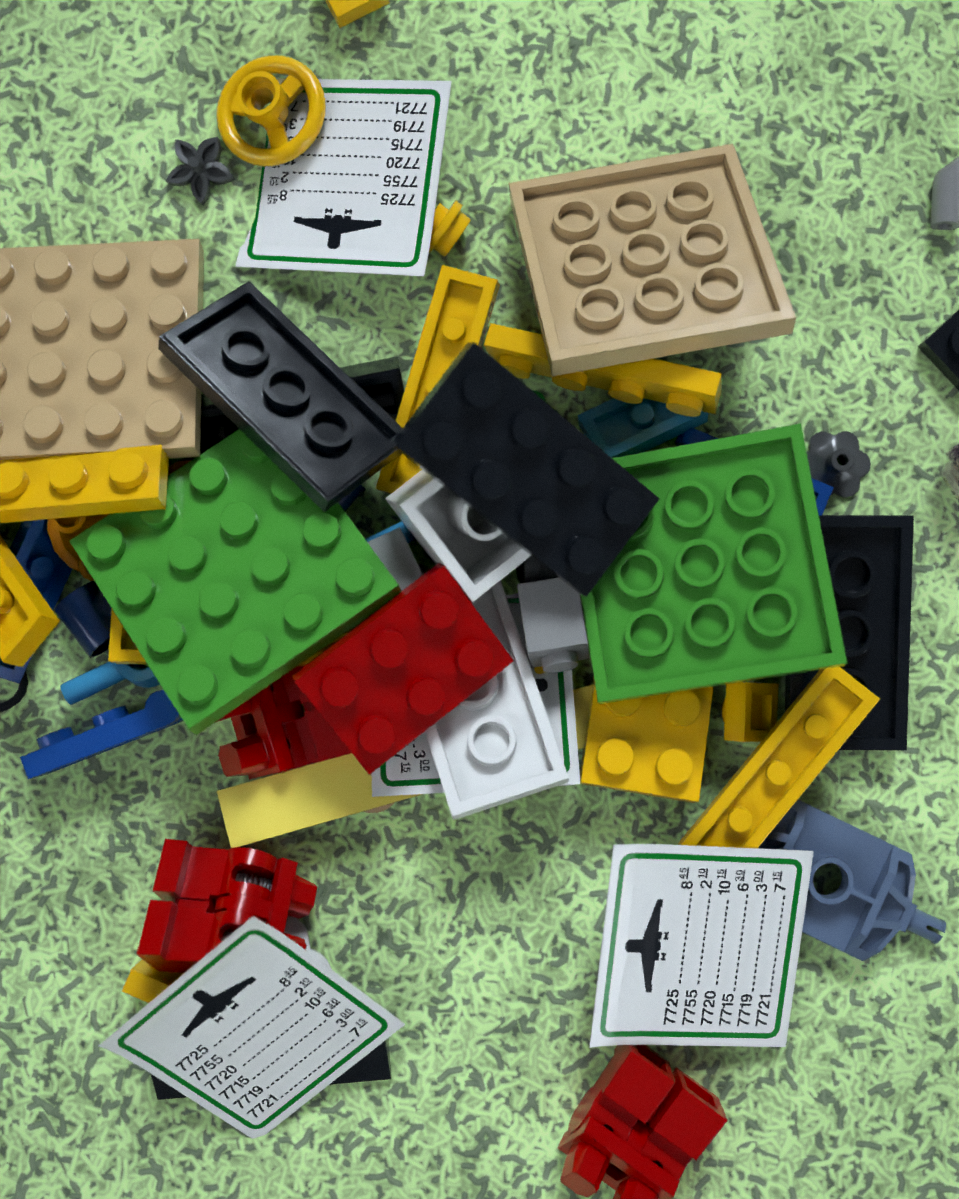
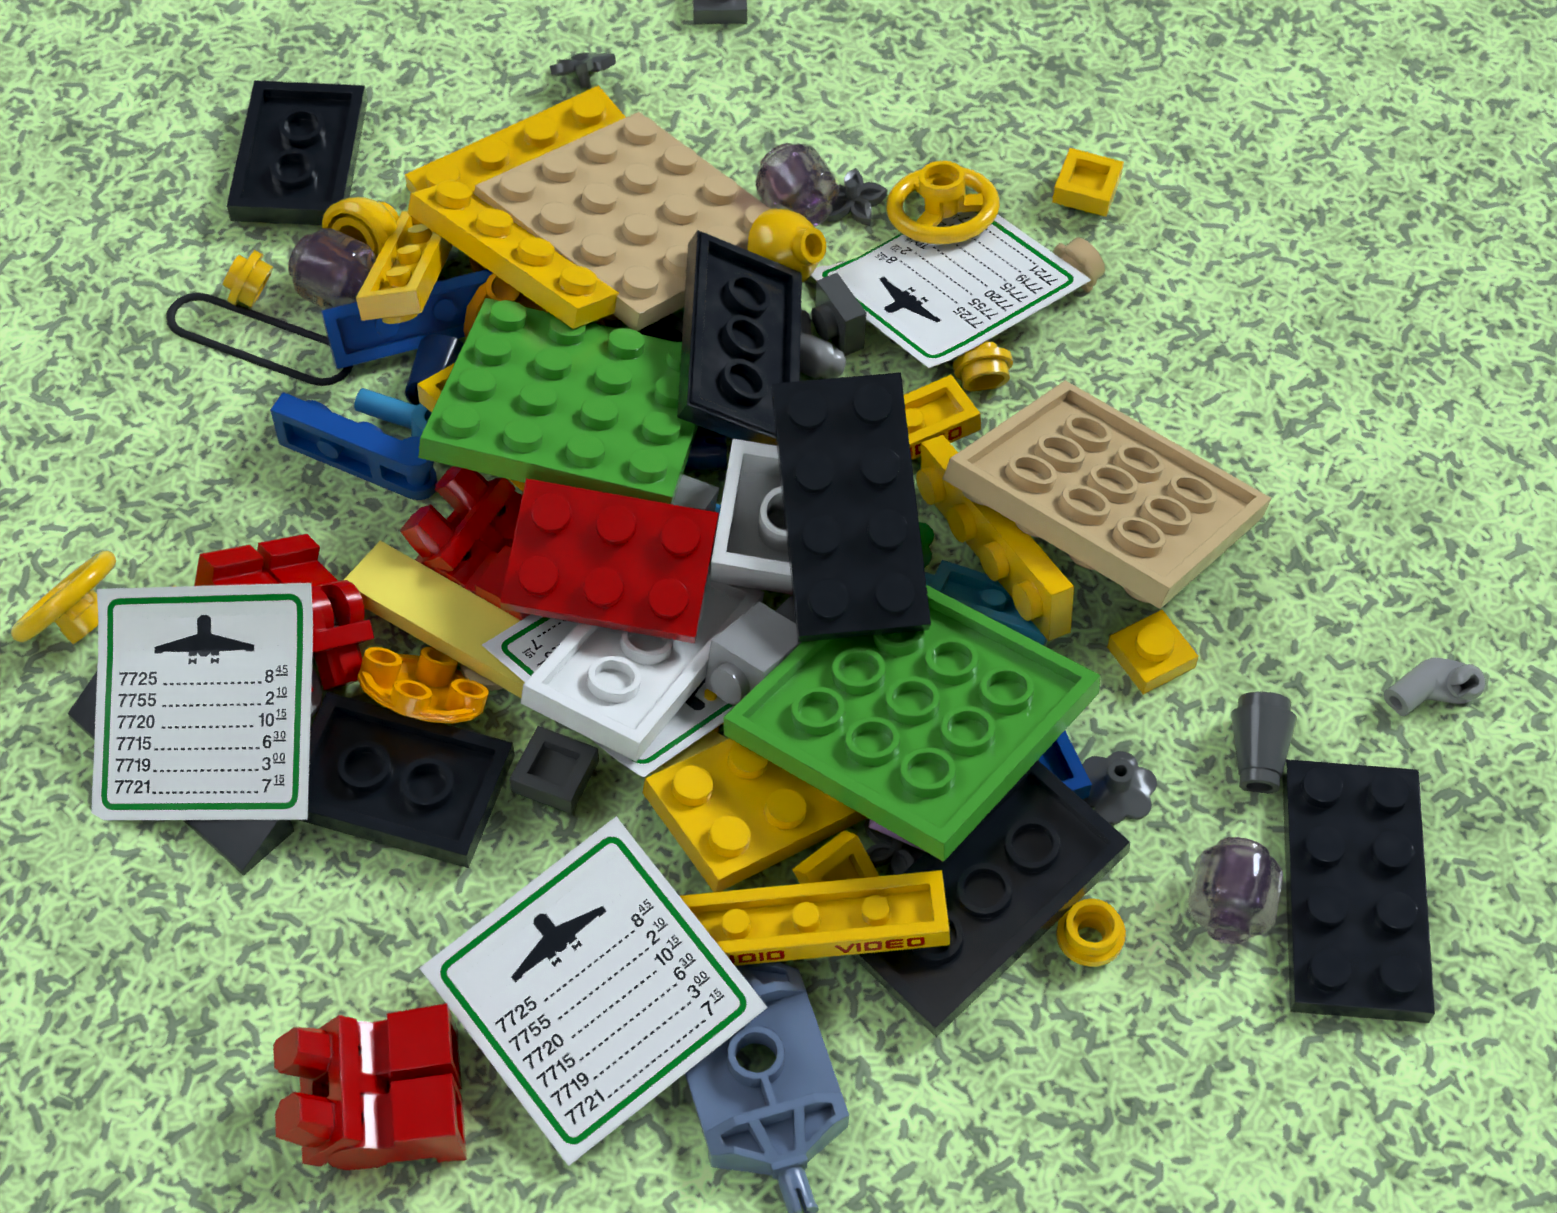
camera: 50 degrees right, 30 degrees down
(69, 1047) = (69, 604): none -> yellow piece
(159, 203) = (797, 180): none -> head
(211, 266) = (788, 240): none -> yellow brick
(306, 287) = (839, 315): none -> dark grey plate
(327, 333) = (817, 355): none -> light grey arm
(364, 862) = (421, 686): none -> light orange dish
(417, 64) = (1084, 258): none -> tan plate
(417, 926) = (403, 779): none -> black plate
(504, 827) = (554, 770): none -> dark grey plate
(767, 355) = (1152, 651): none -> yellow plate
(898, 343) = (1262, 739): none -> dark grey cone
(939, 585) = (1097, 915): none -> yellow plate

